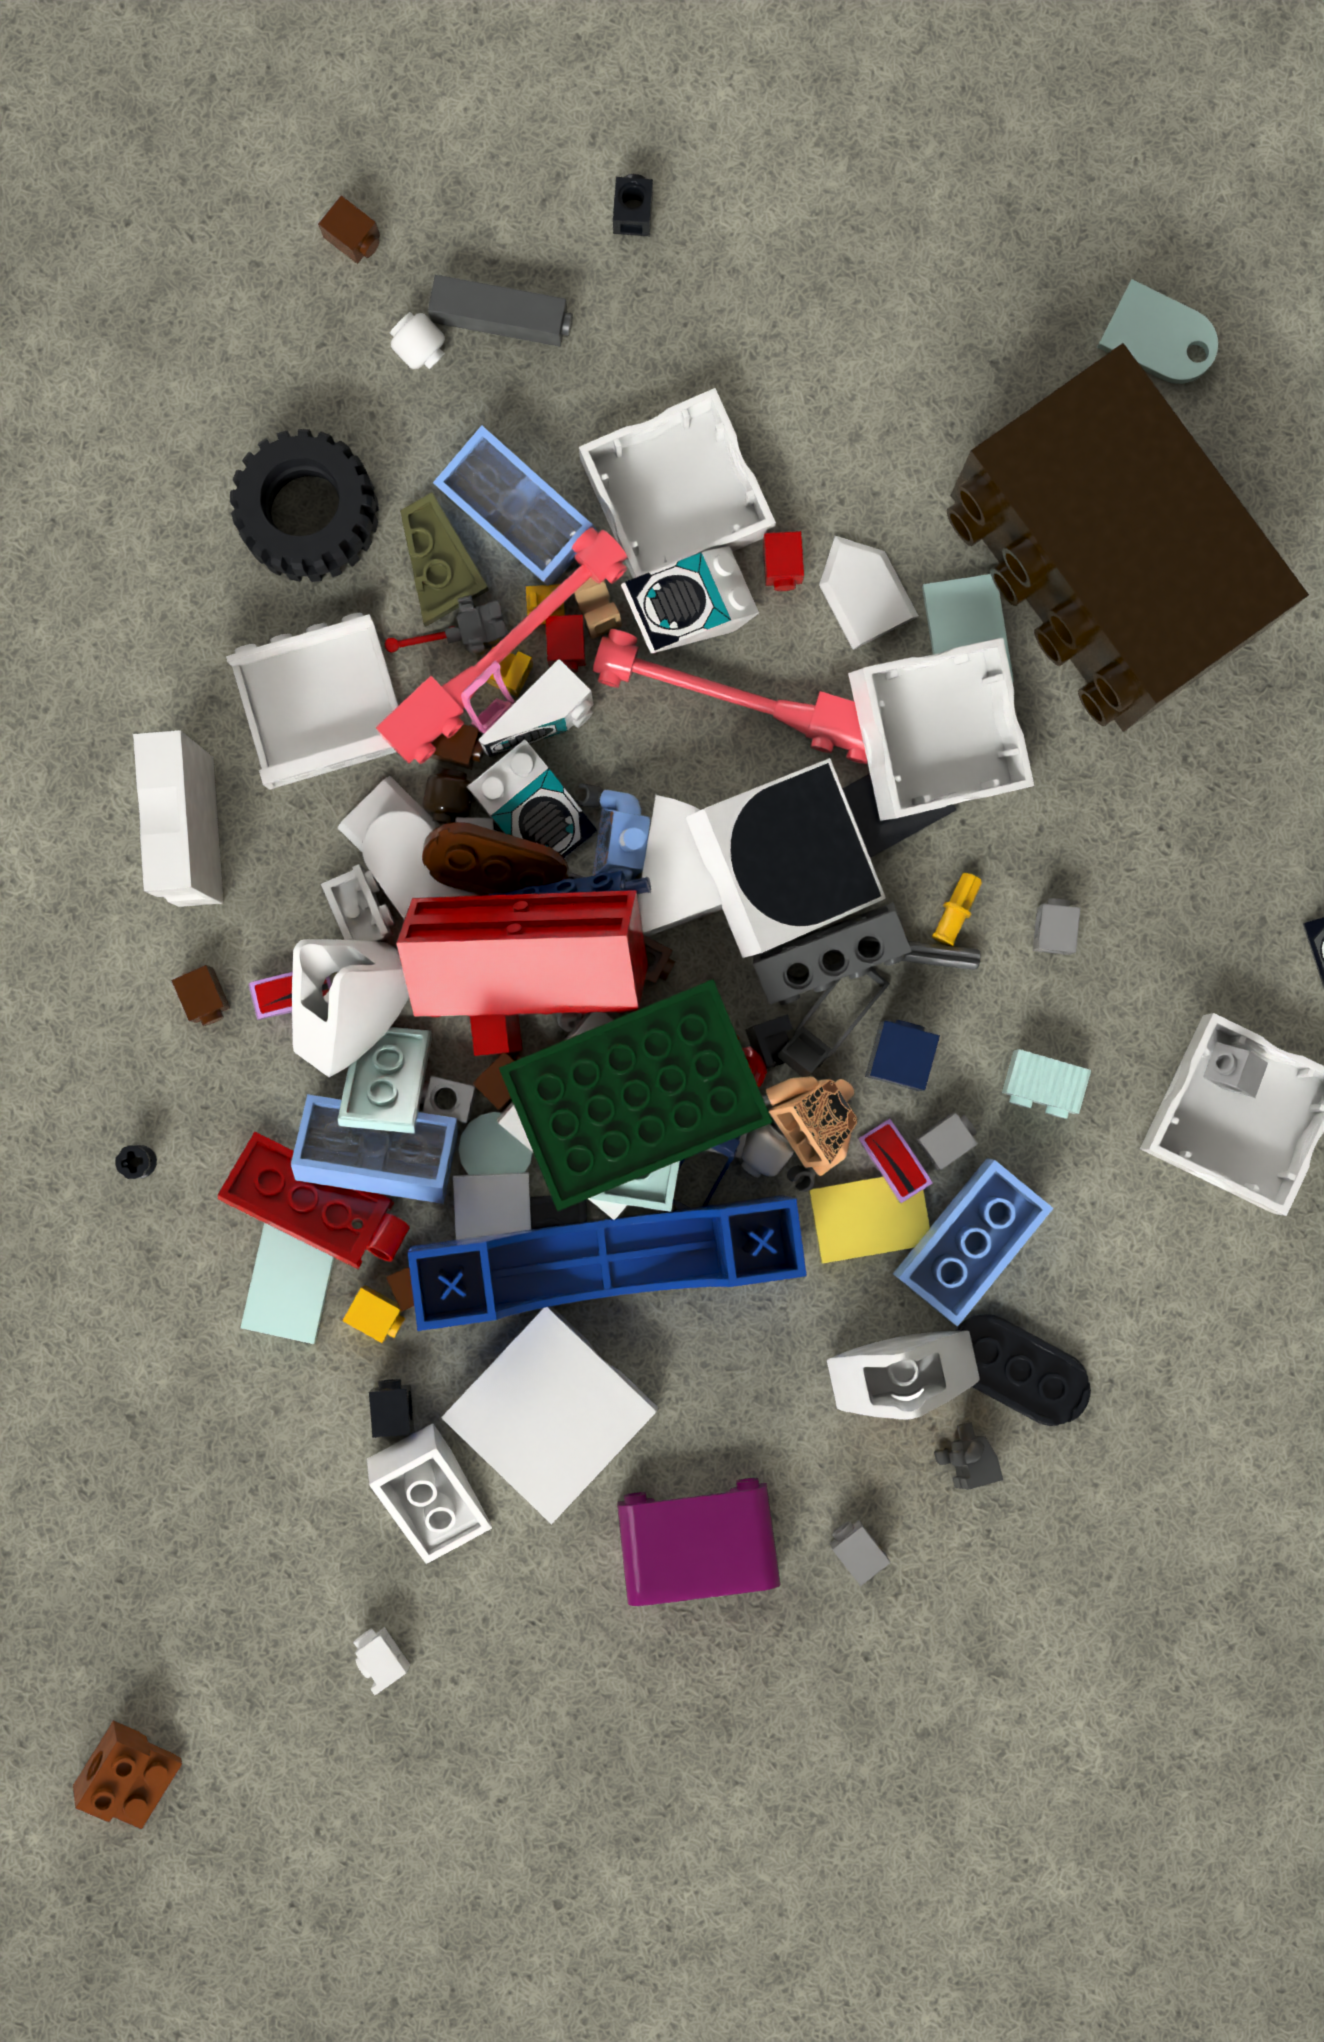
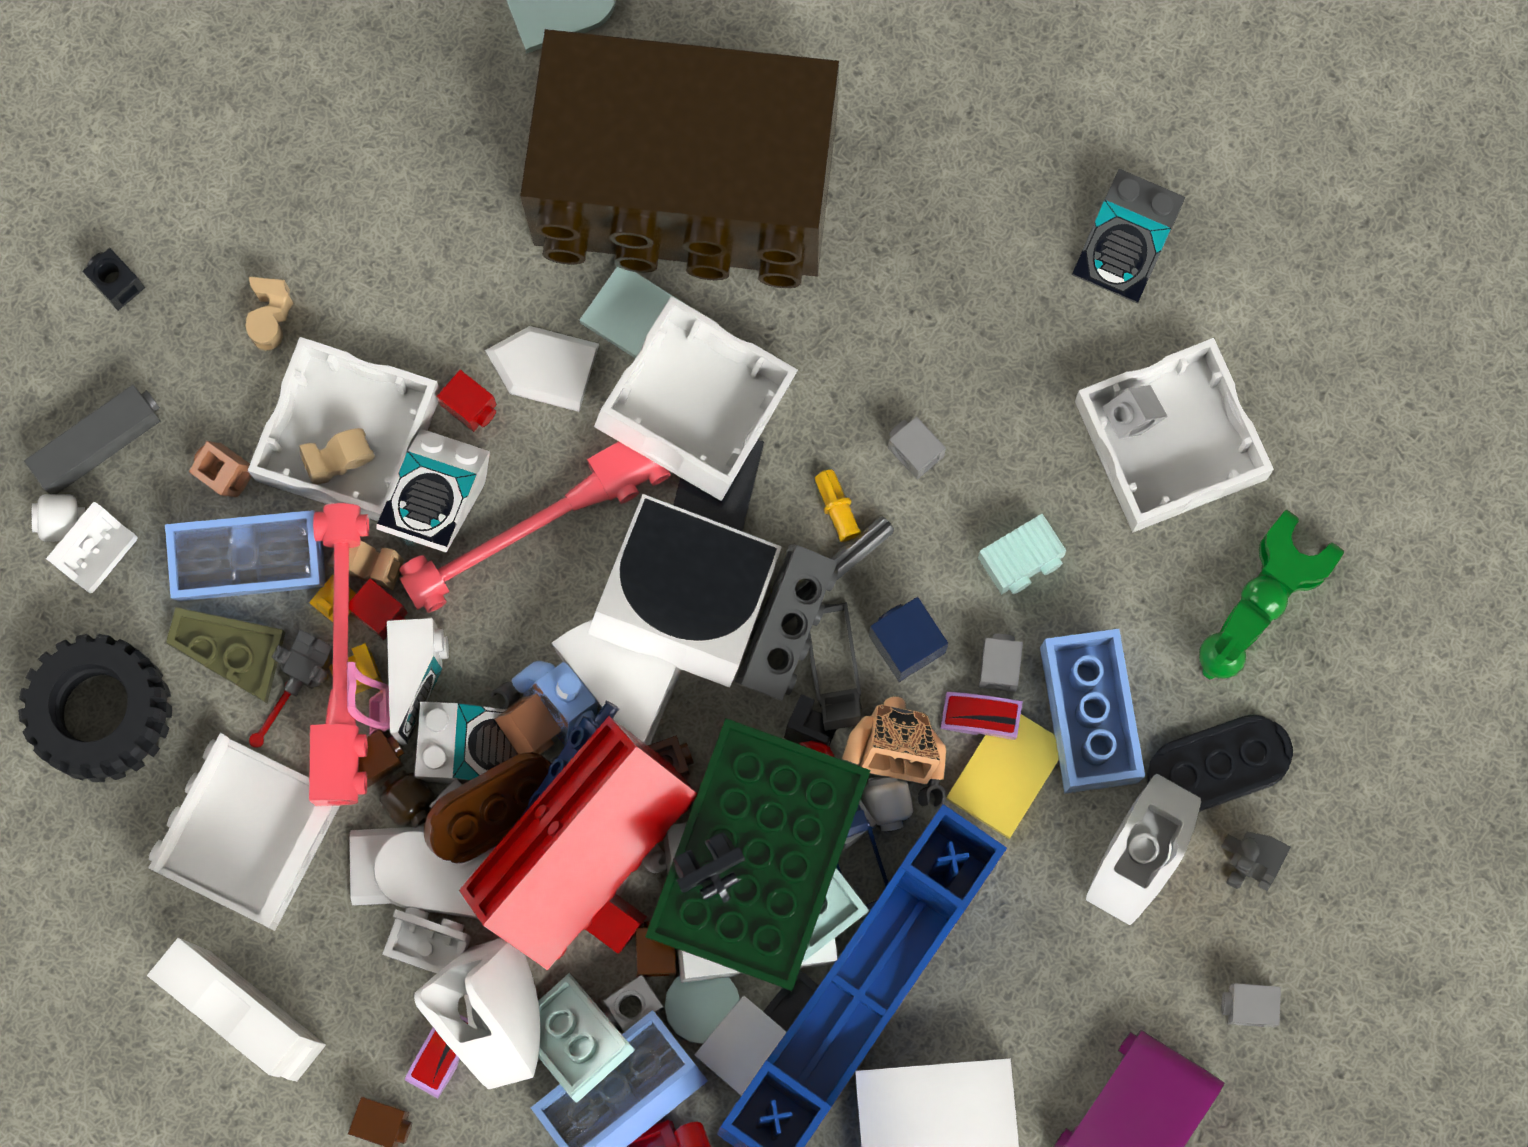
camera: 45 degrees left, 10 degrees down
(418, 388) = (92, 548): none -> white bracket
(563, 426) = (229, 479): none -> nougat brick
(573, 1062) = (724, 857): none -> black hips
(581, 834) = (528, 725): none -> nougat brick
(657, 504) = (342, 452): none -> tan leg
(702, 350) = (263, 322): none -> tan leg
(1180, 1294) = (1265, 597): none -> green piece

